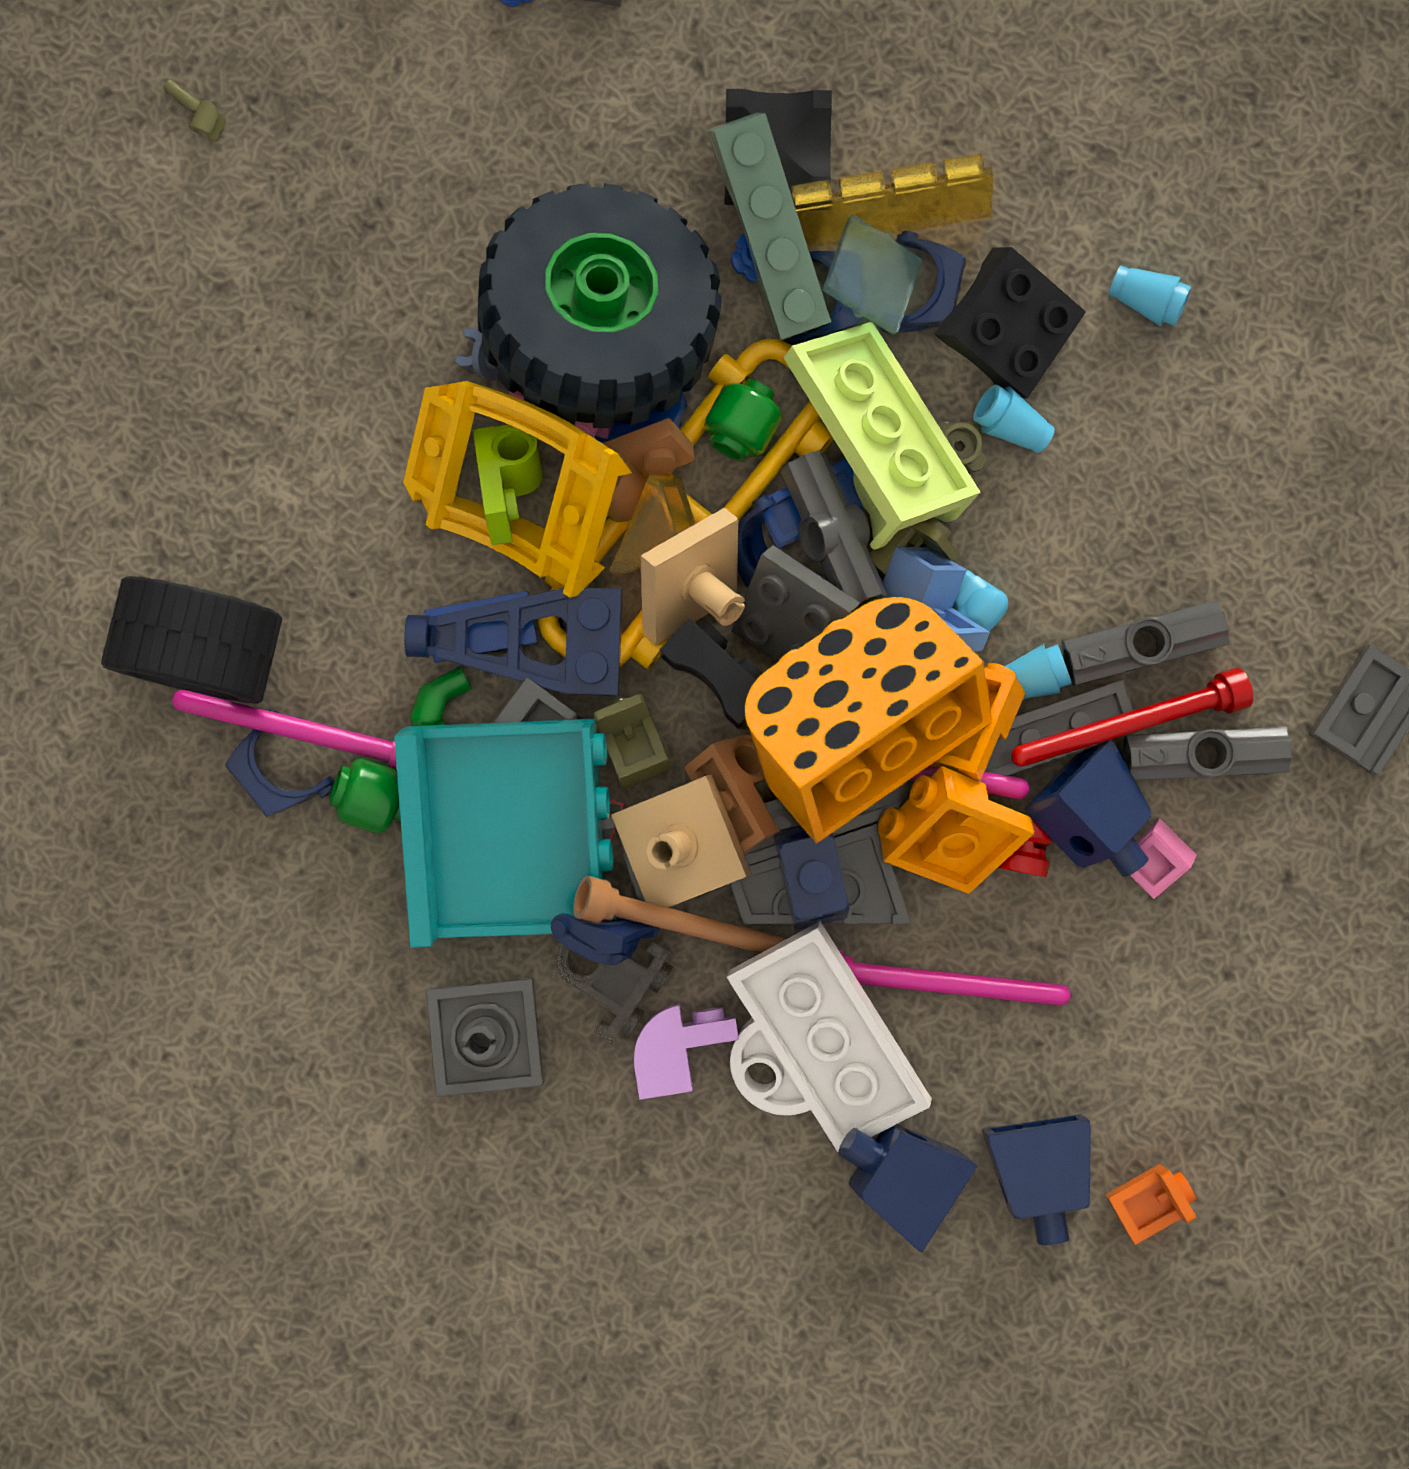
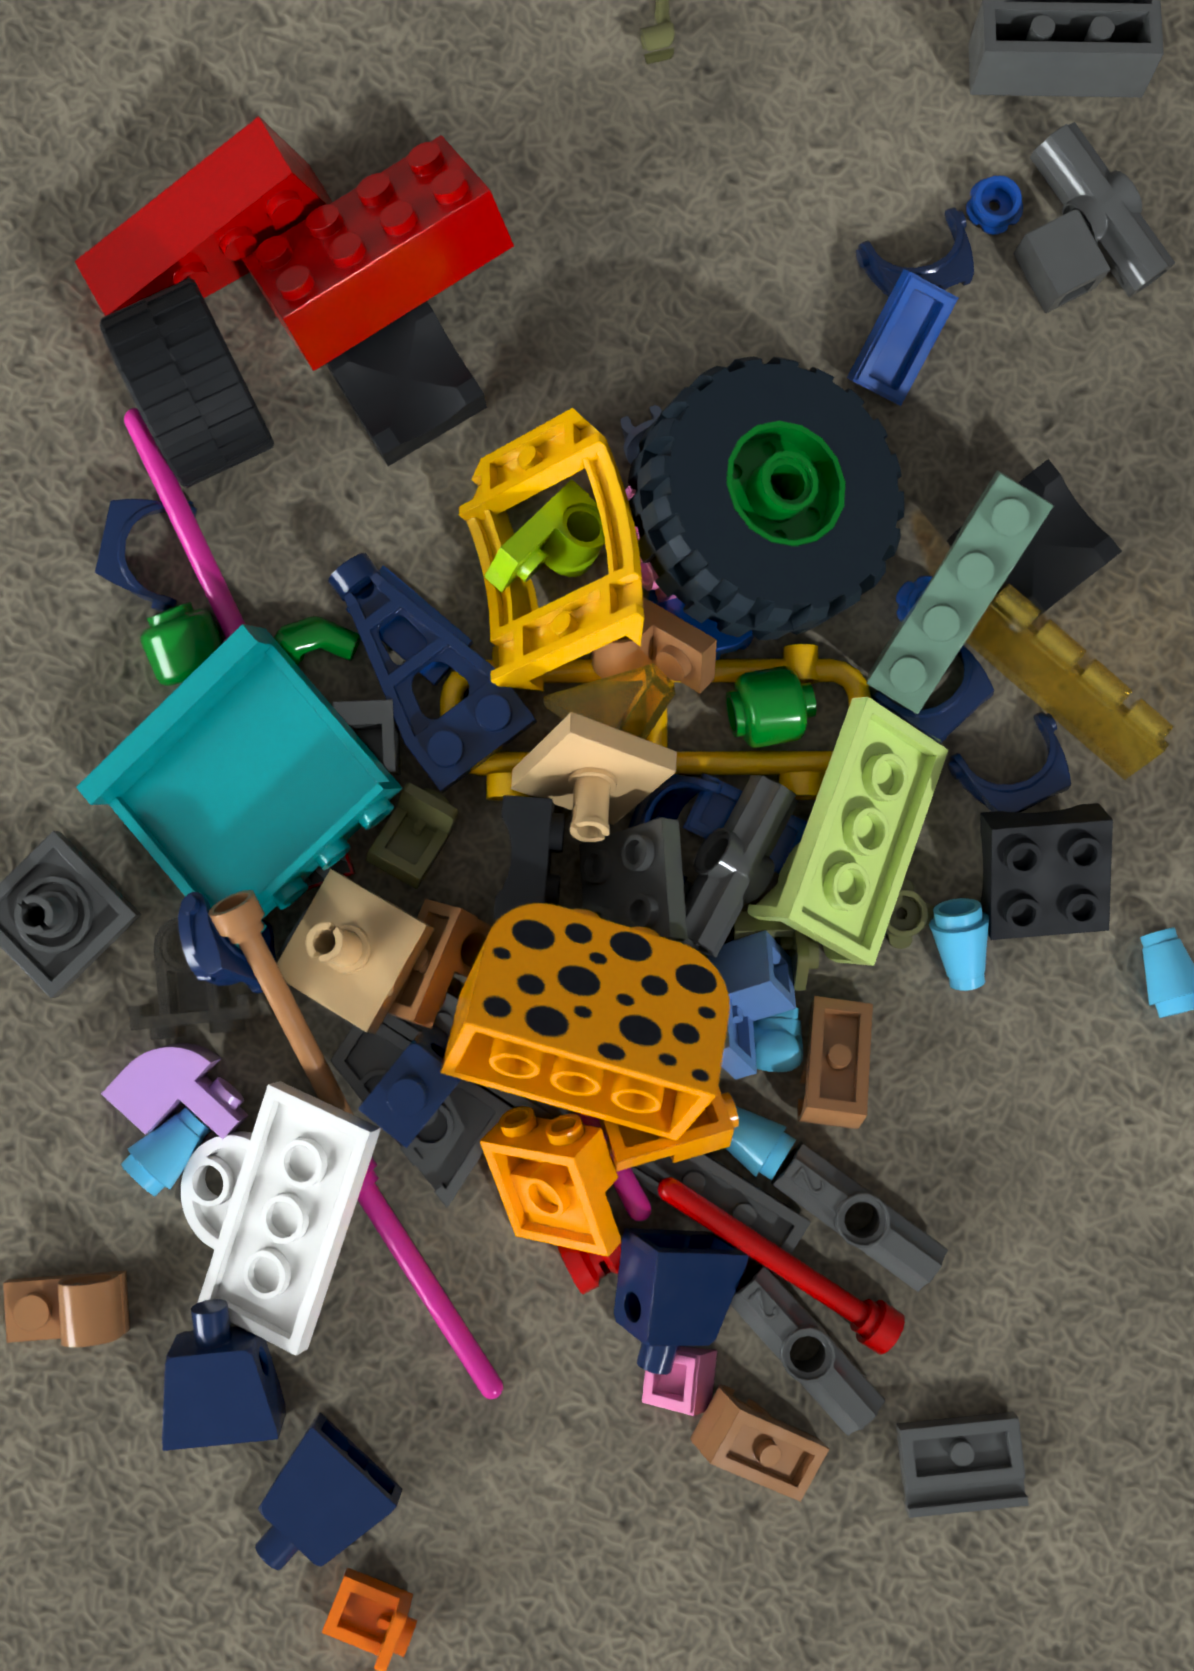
camera: 45 degrees right, 0 degrees up
(87, 539) = (206, 221): none -> red wedge
(203, 435) = (379, 251): none -> red brick
(307, 490) = (407, 384): none -> black brick
(528, 82) = (950, 270): none -> dark blue helmet
(558, 120) = (902, 337): none -> blue tile
(714, 1090) = (163, 1153): none -> medium azure cone
(767, 1247) = (72, 1308): none -> medium nougat plate
(872, 274) = (989, 717): clear light blue piece -> none
(1028, 574) = (837, 1063): none -> medium nougat plate
(1246, 839) = (757, 1446): none -> medium nougat plate

